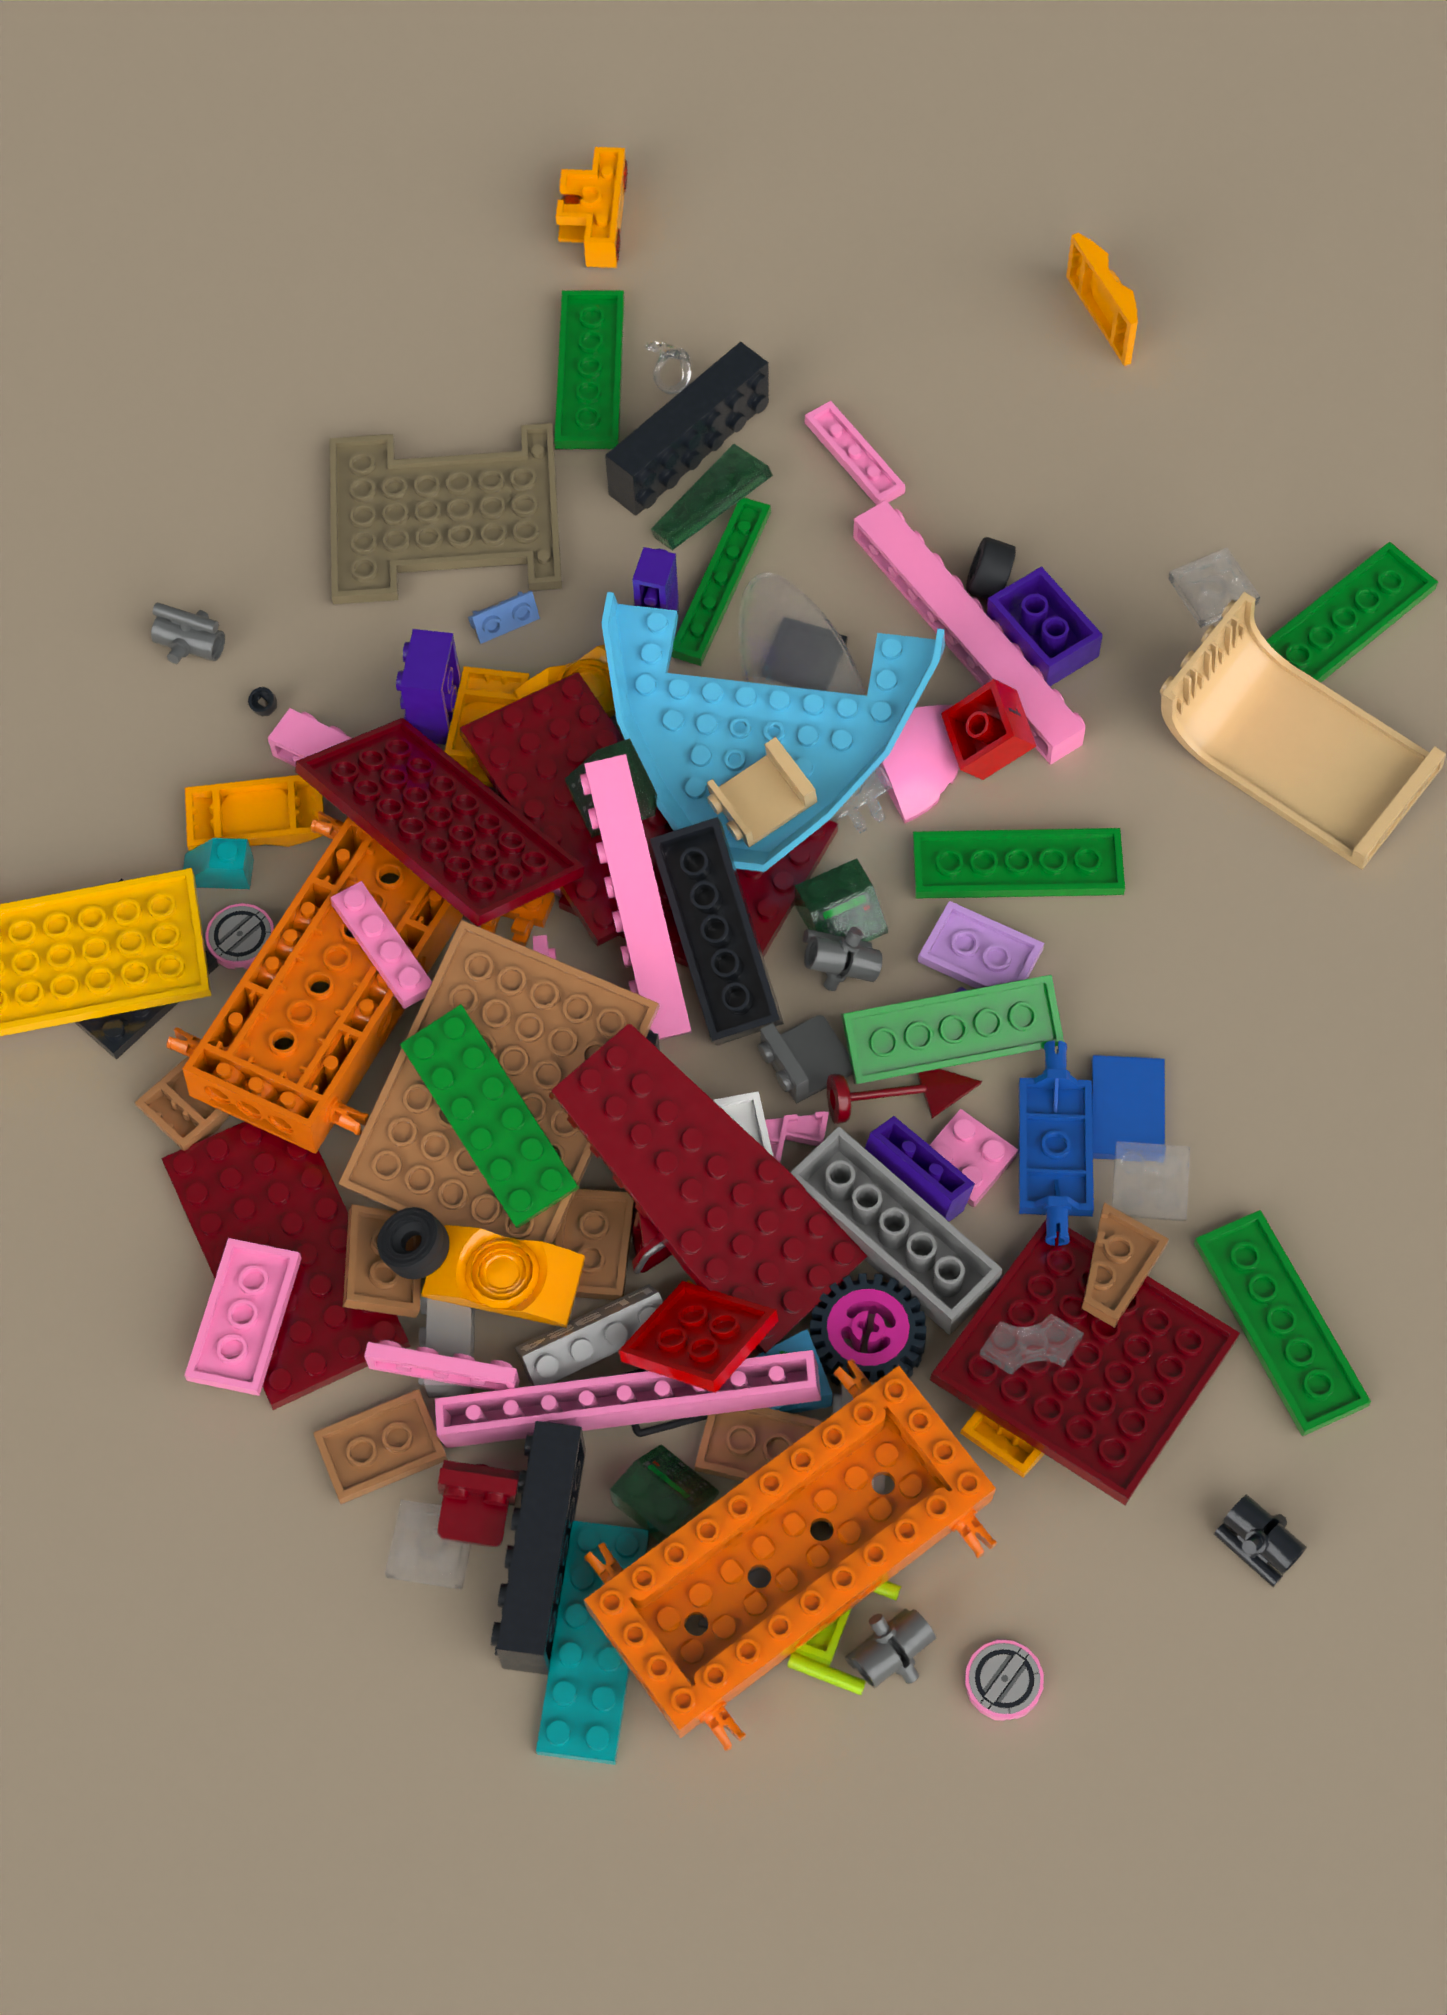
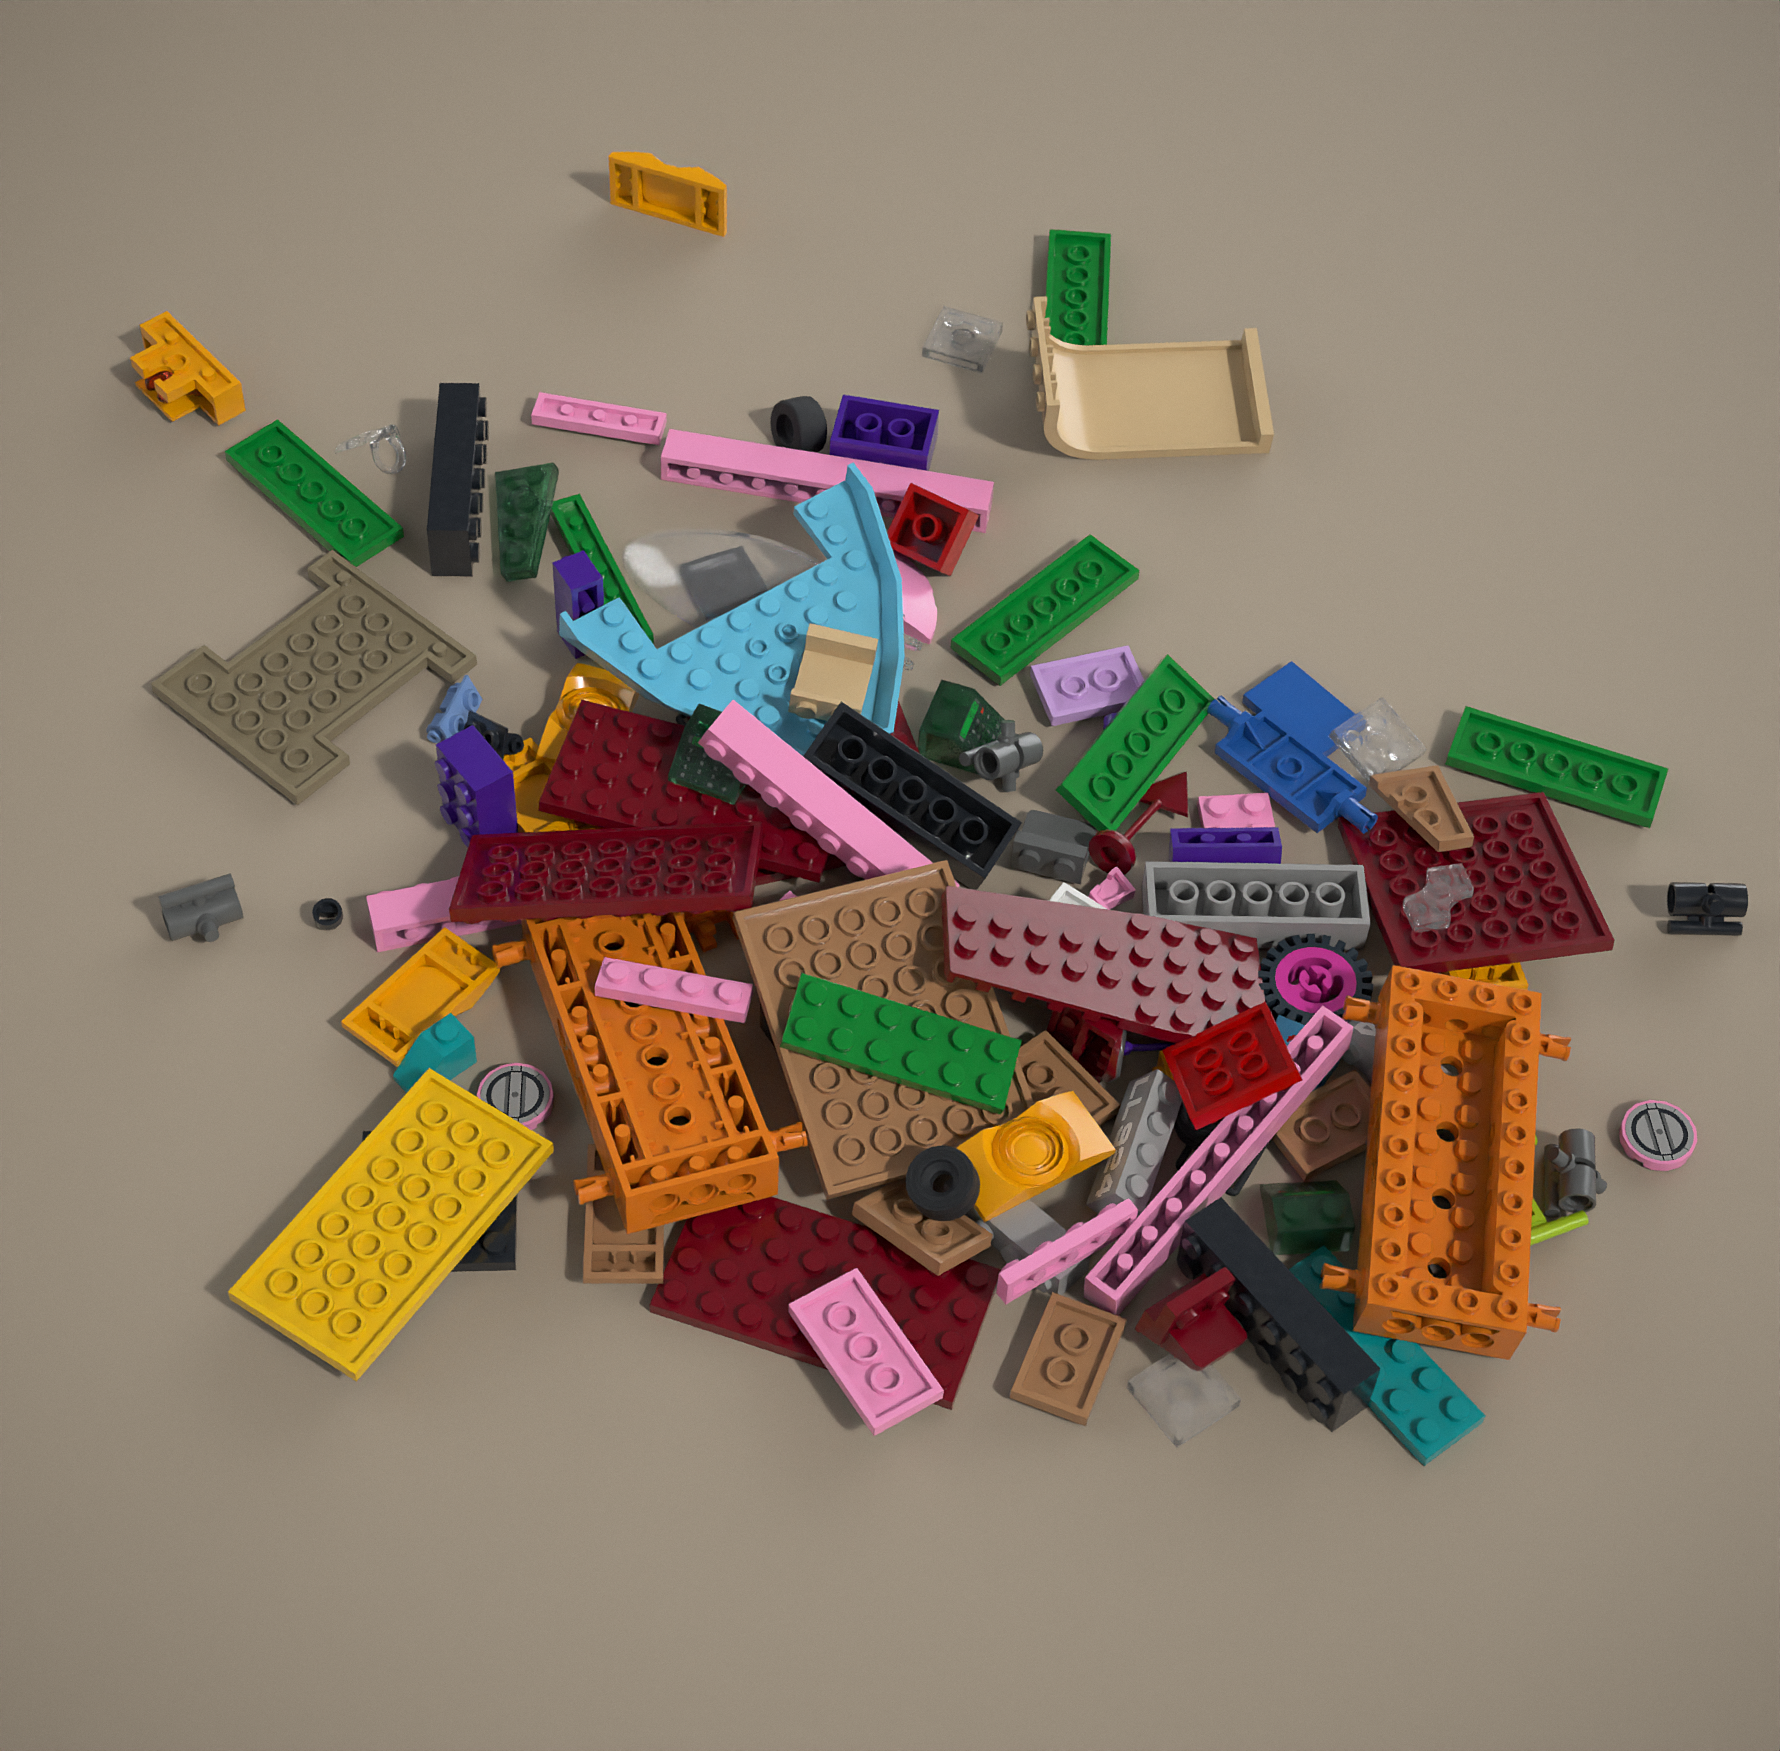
camera: 50 degrees left, 10 degrees down
(502, 653) = (495, 734): none -> black hinge

